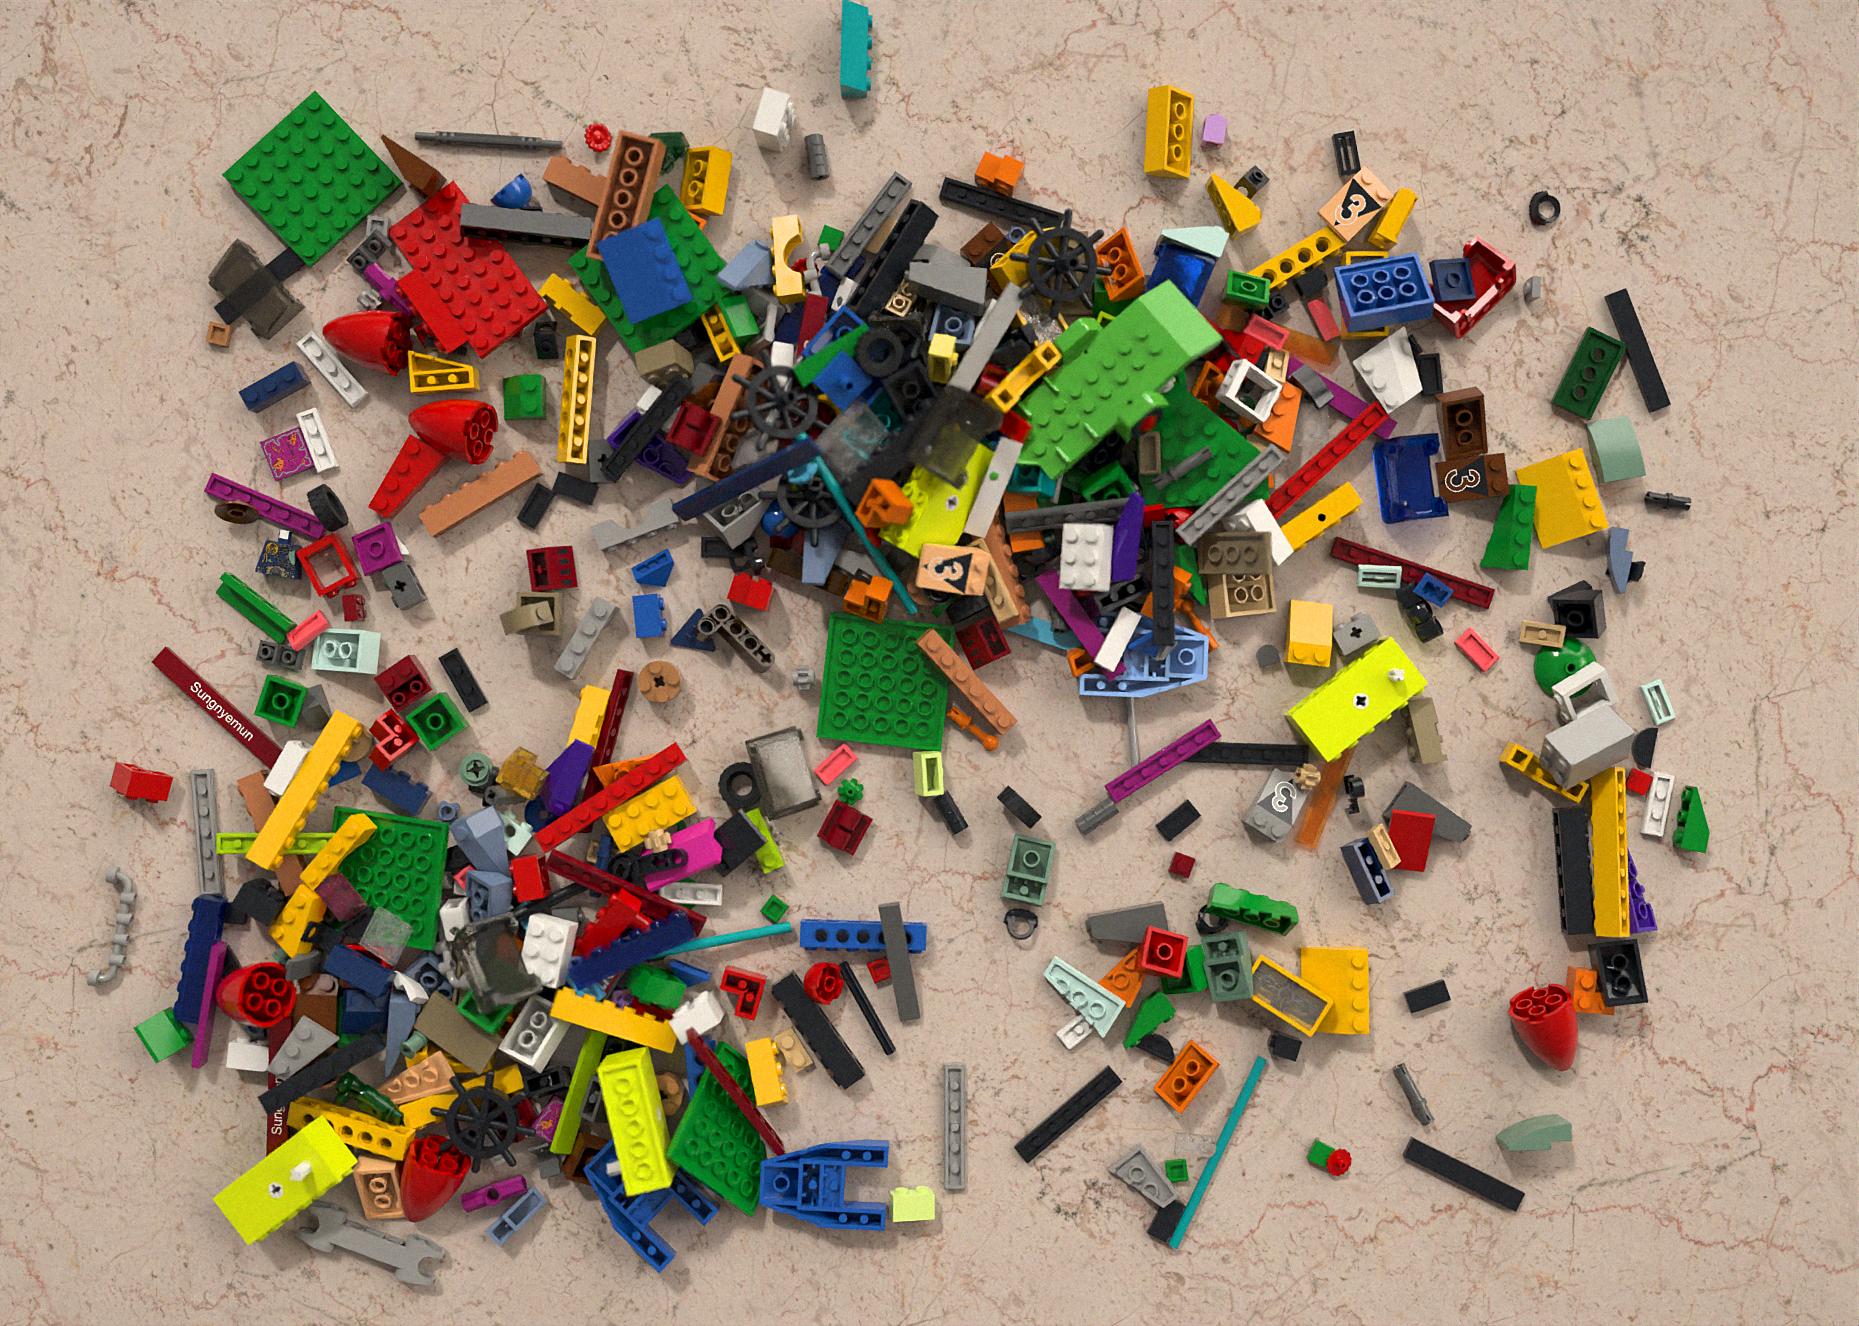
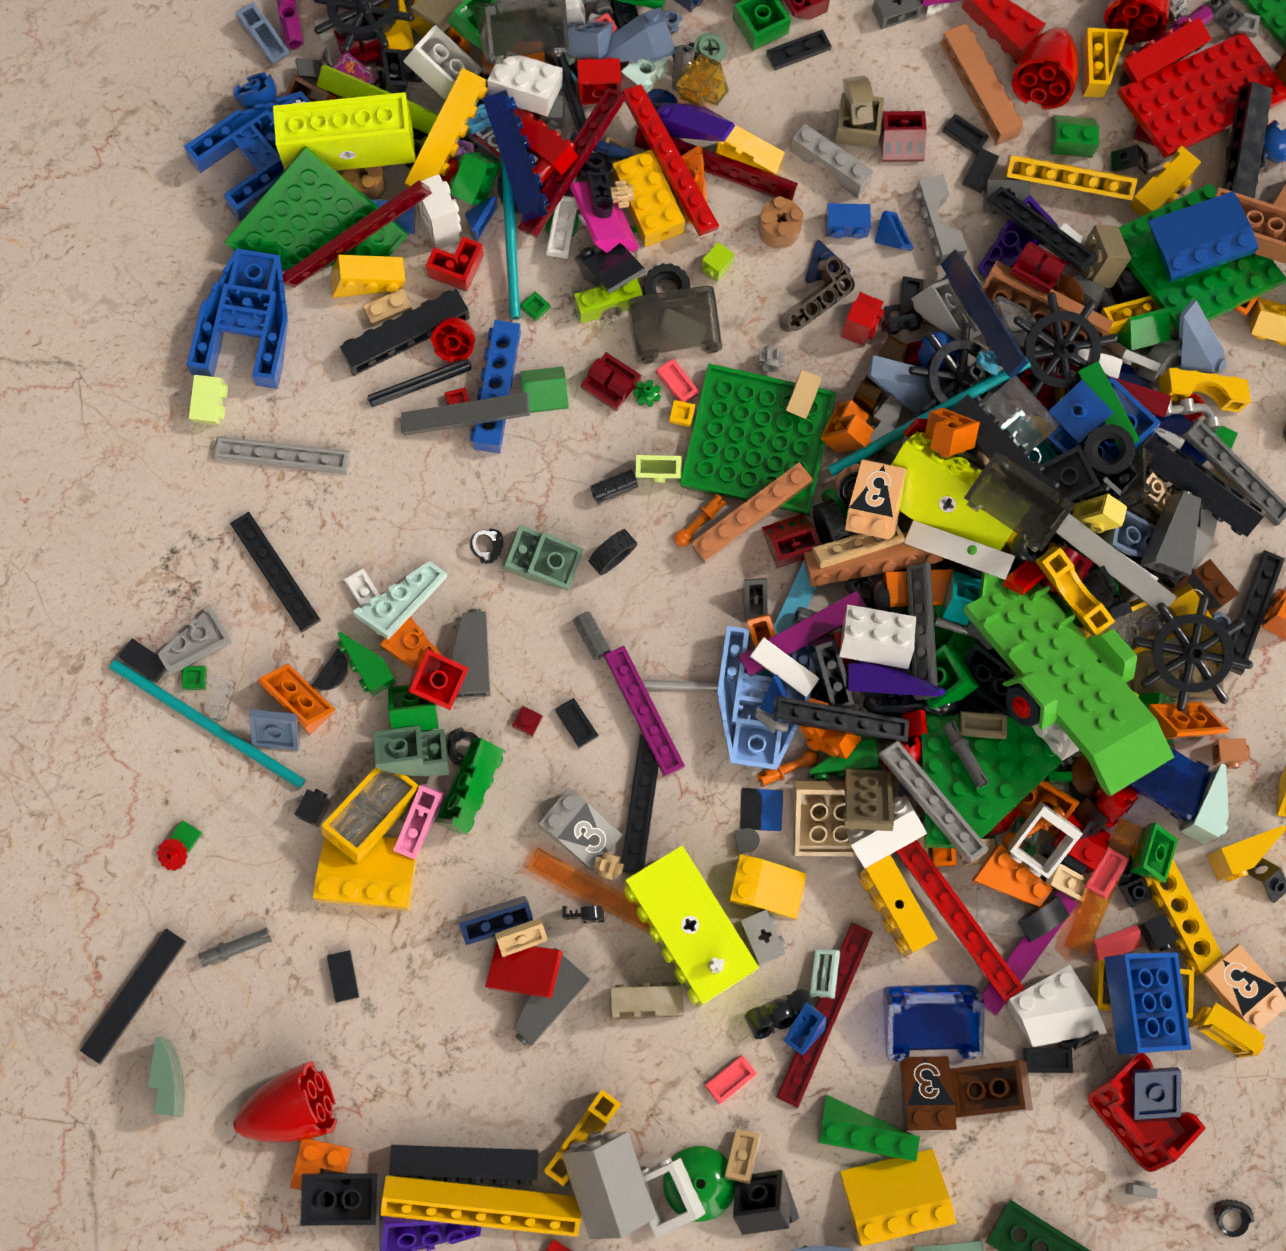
camera: 95 degrees right, 15 degrees down
(584, 1212) = (257, 90): none -> blue cylinder
(709, 739) = (717, 261): none -> lime brick
(840, 643) = (803, 394): none -> tan slope
(858, 889) = (545, 388): none -> green slope
(869, 756) = (682, 413): none -> yellow plate
(1045, 669) = (754, 597): none -> dark grey slope
(1139, 222) = (1230, 752): none -> nougat brick
(1221, 1091) = (274, 729): none -> sand blue plate
(1237, 645) = (761, 809): none -> sticker
(1286, 949) = (419, 820): none -> bright pink slope

